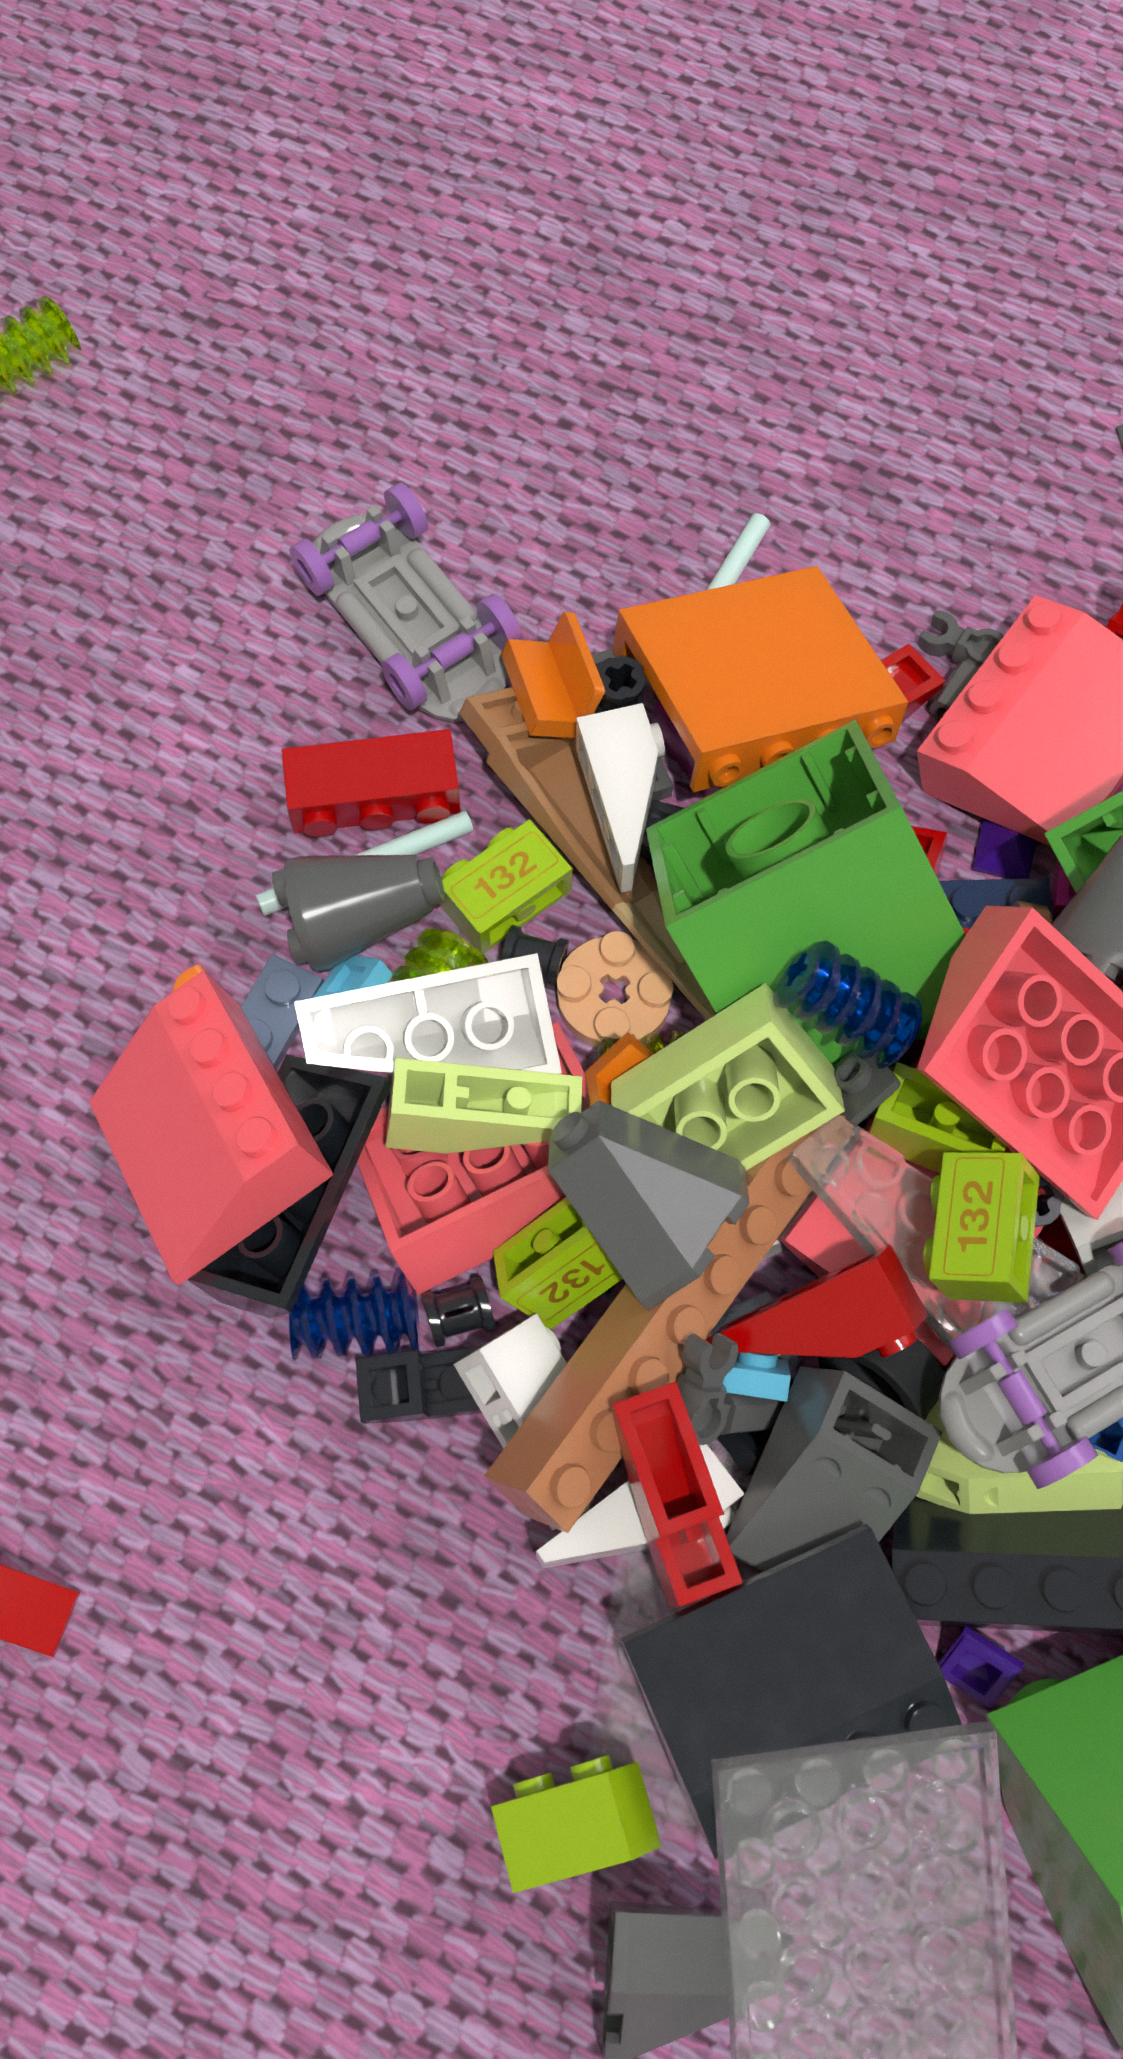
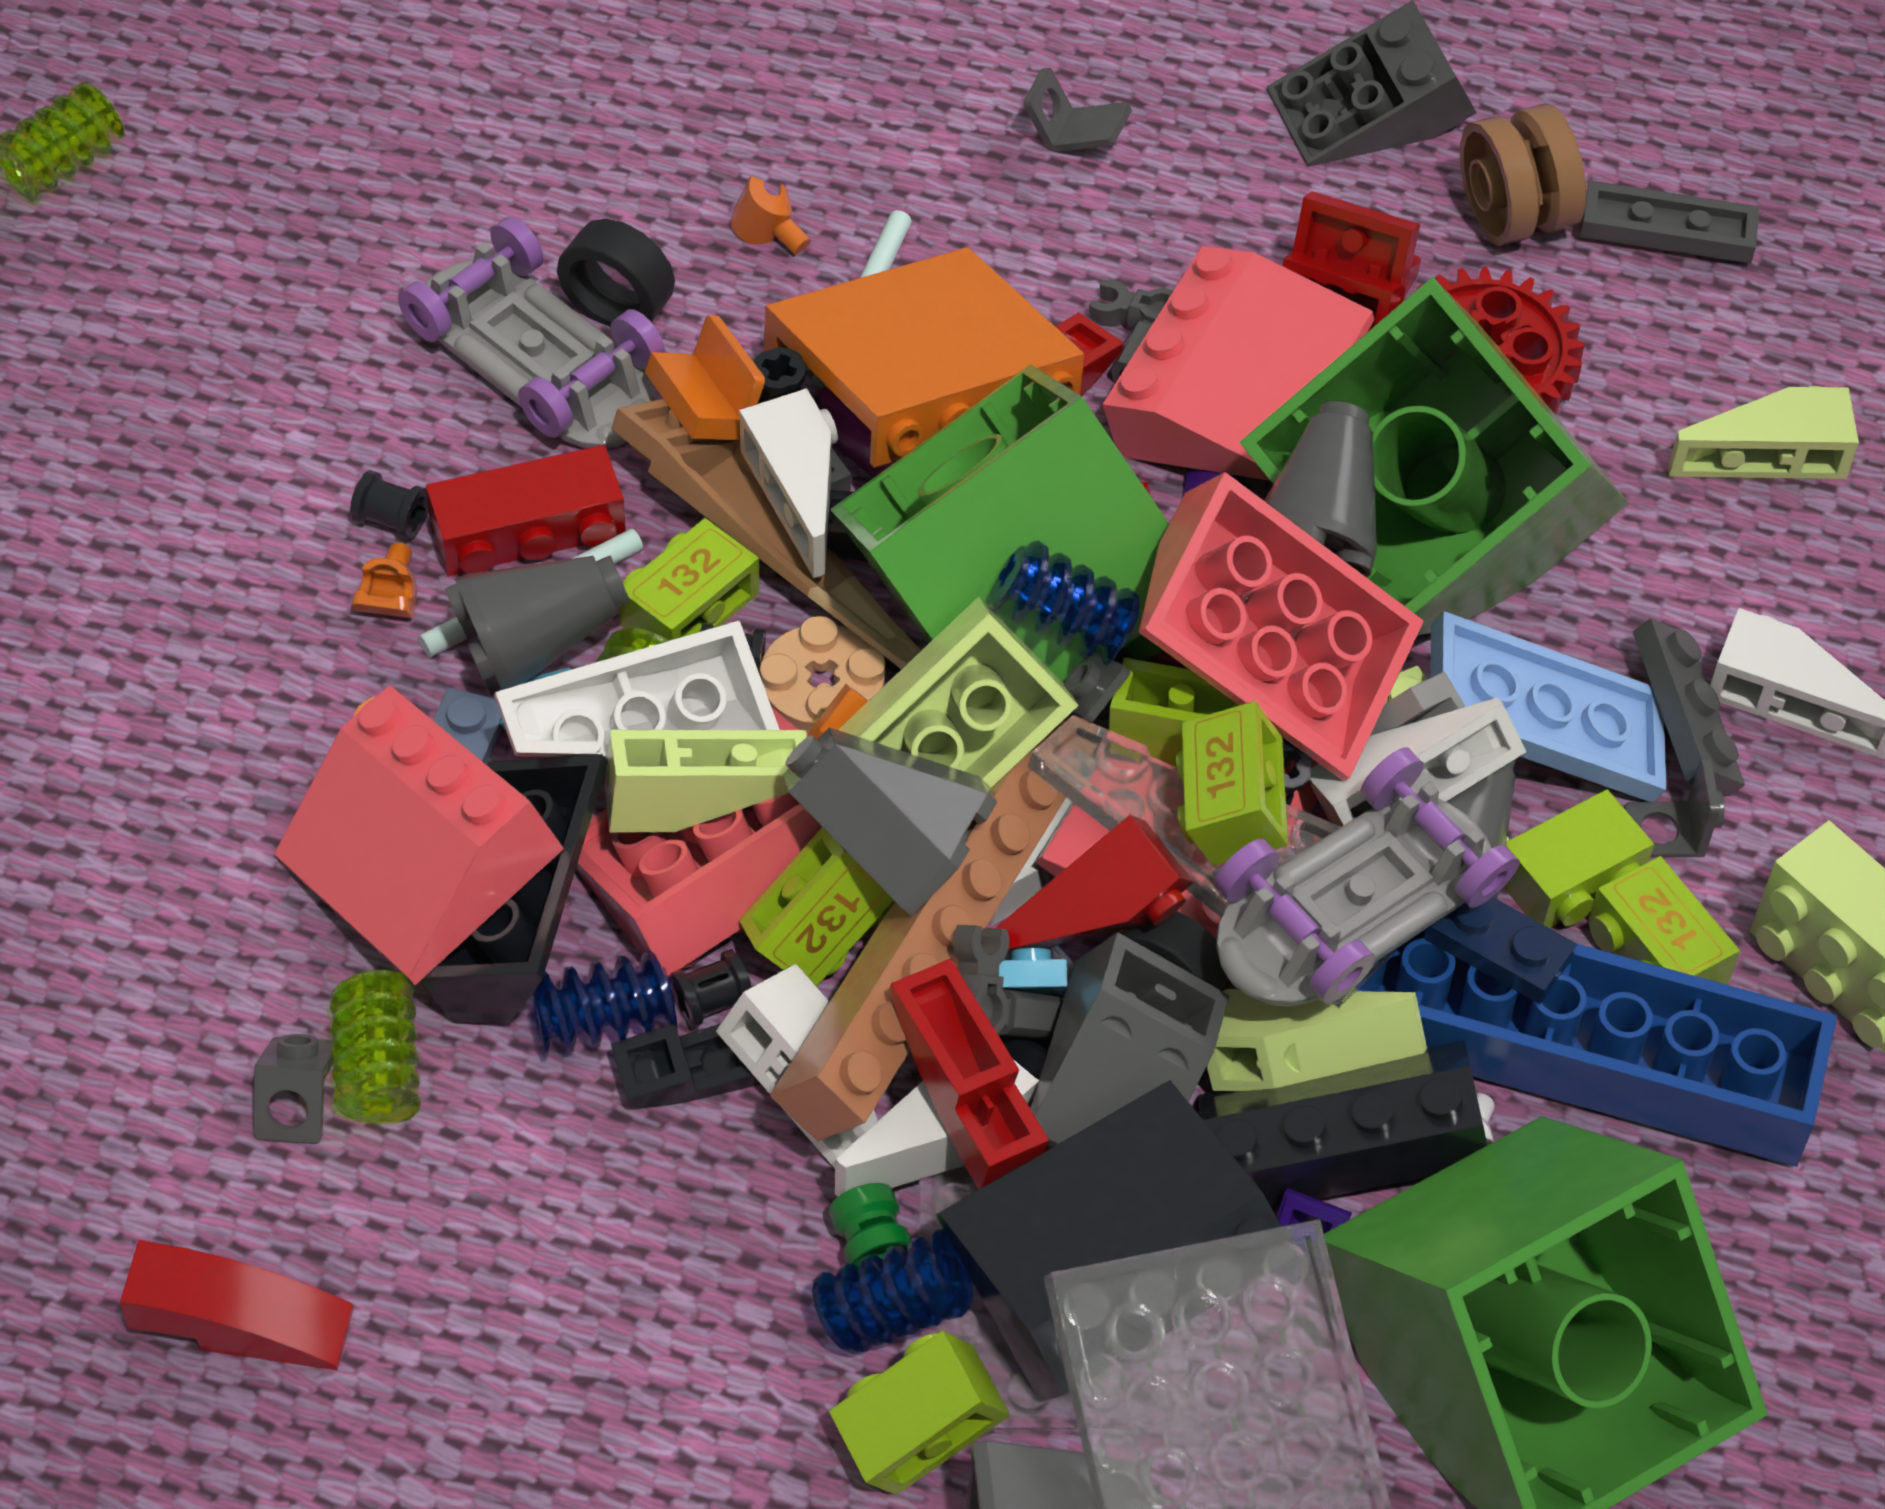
camera: 10 degrees left, 15 degrees down
(62, 1341) = (295, 1065): none -> dark grey bracket
(136, 1332) = (375, 1048): none -> clear neon green piece
(237, 839) = (388, 585): none -> orange piece
(249, 757) = (389, 505): none -> black bush
(490, 551) = (627, 252): none -> black tyre
(559, 1585) = (868, 1221): none -> green wheel
(568, 1689) = (893, 1294): none -> clear blue piece
(636, 506) = (765, 217): none -> orange piece
(932, 446) = (1073, 127): none -> dark grey bracket

